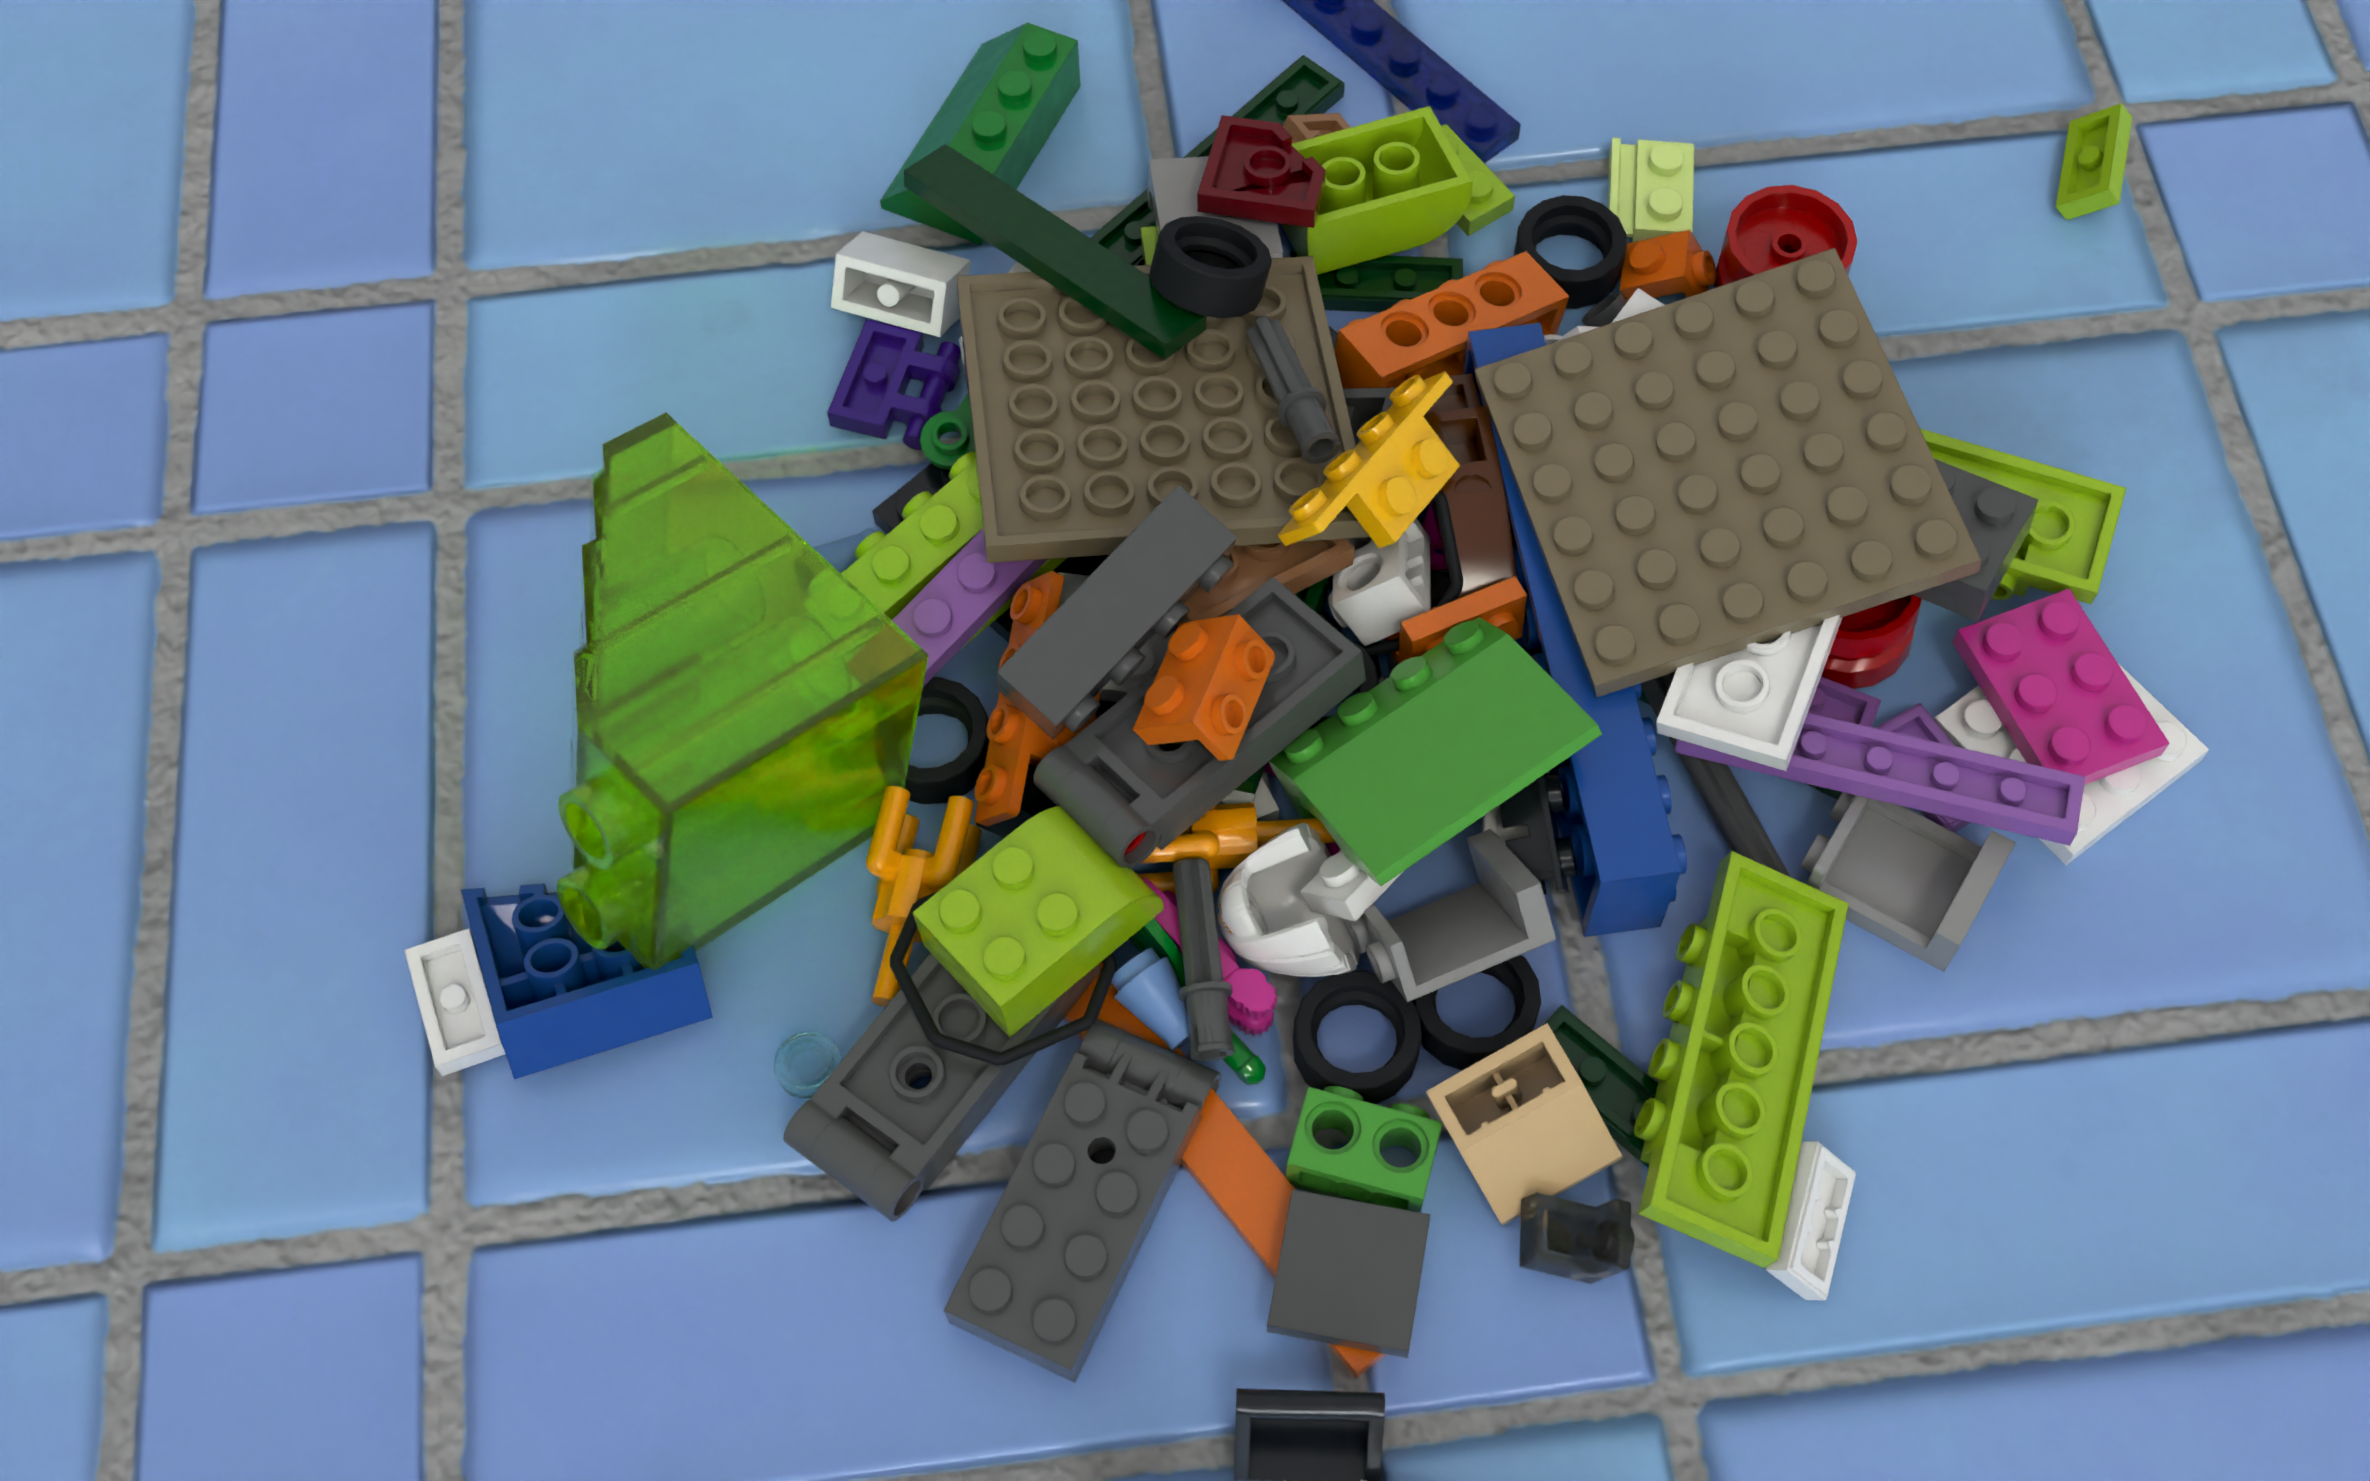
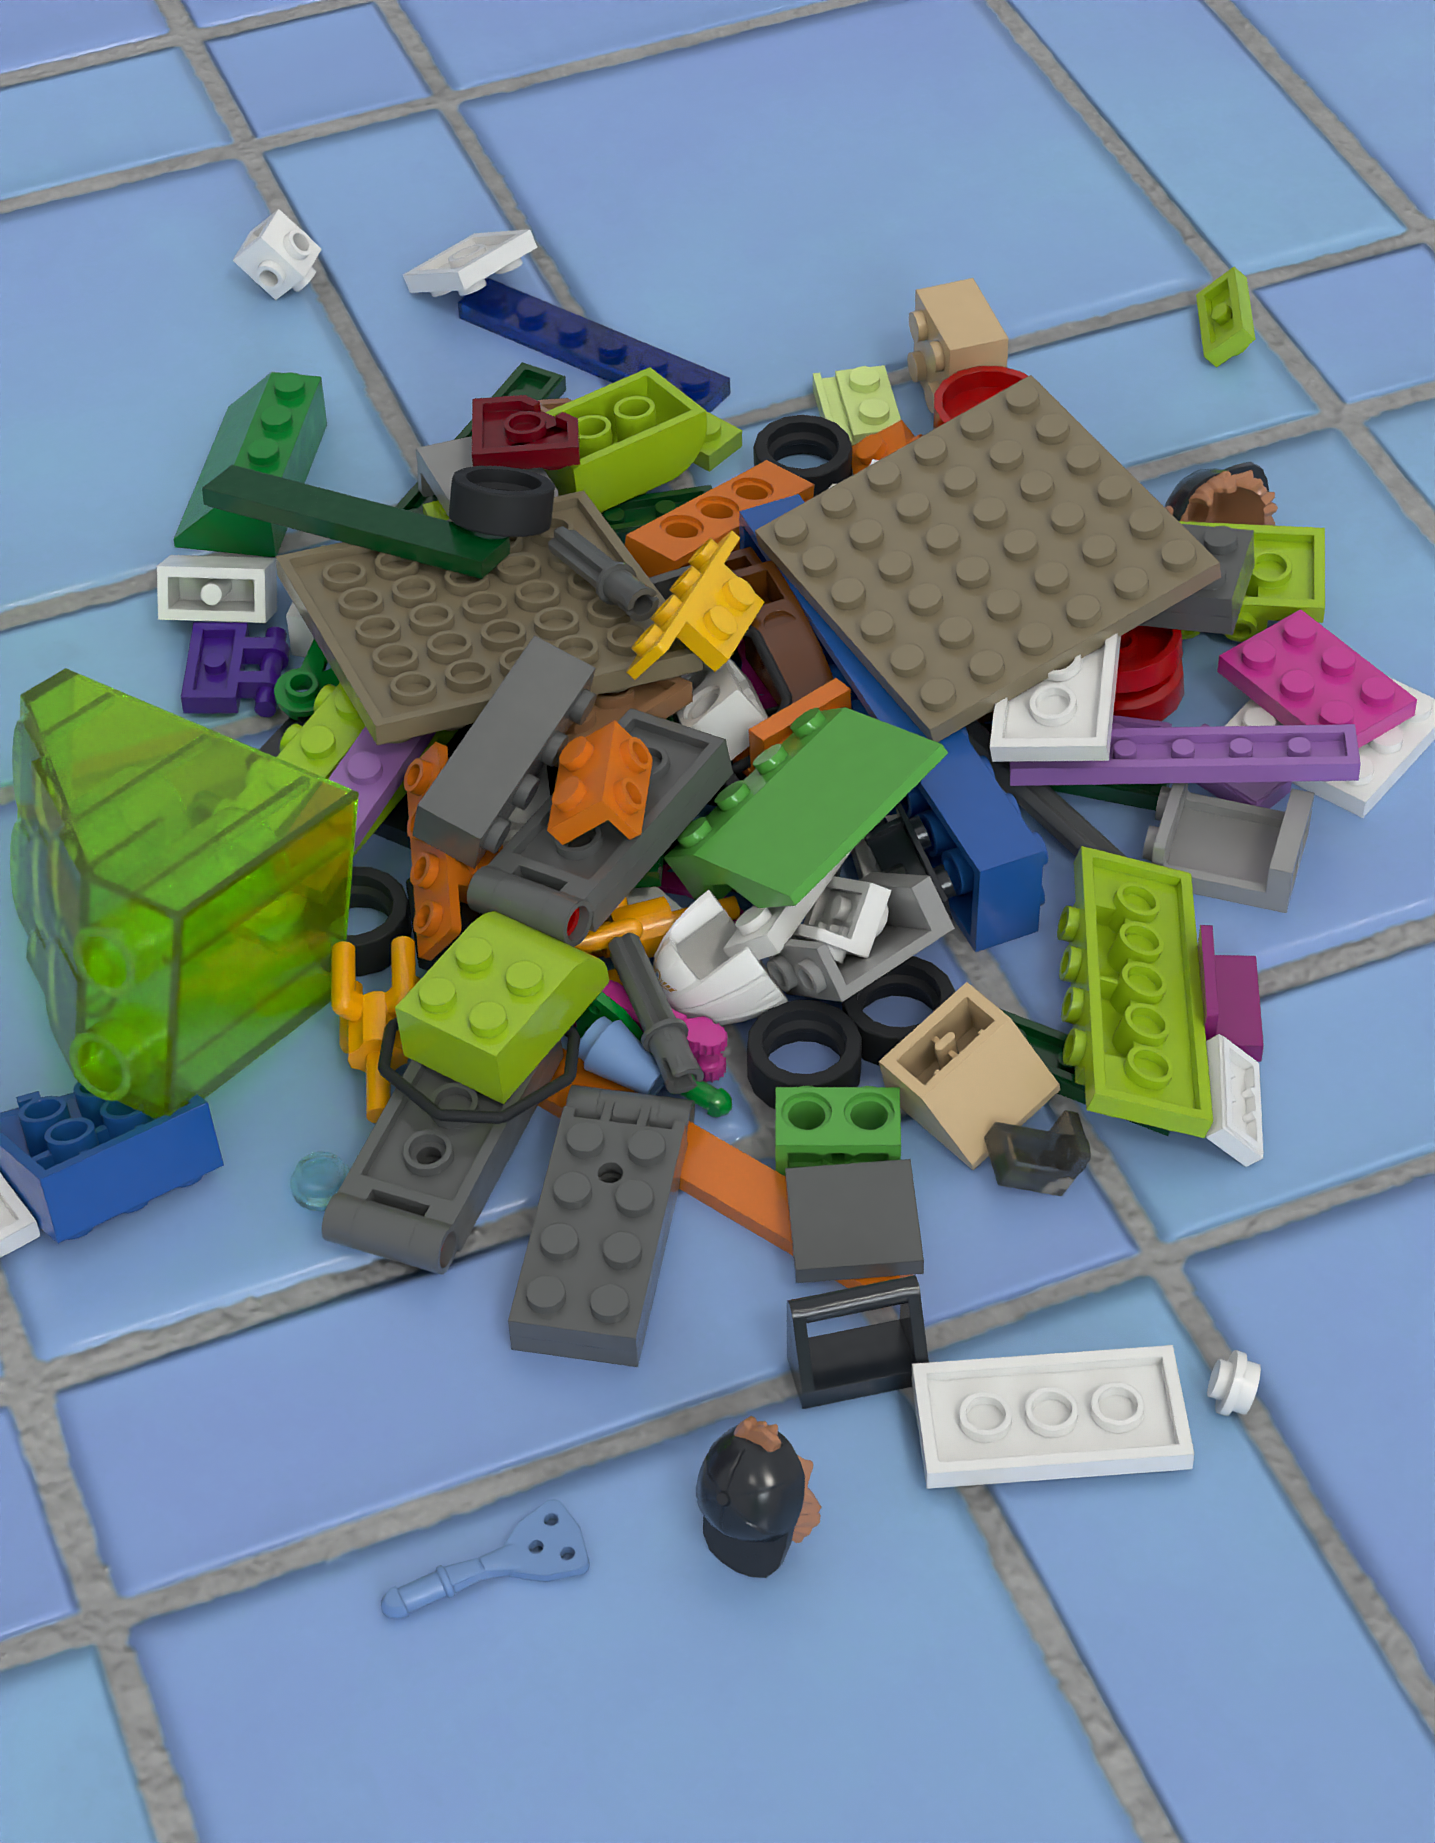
camera: 15 degrees left, 15 degrees down
(1440, 892) = (846, 917): none -> white bracket
(1776, 136) = (952, 333): none -> tan brick
(1846, 1083) = (1230, 996): none -> magenta panel
(2018, 419) = (1224, 496): none -> nougat hair

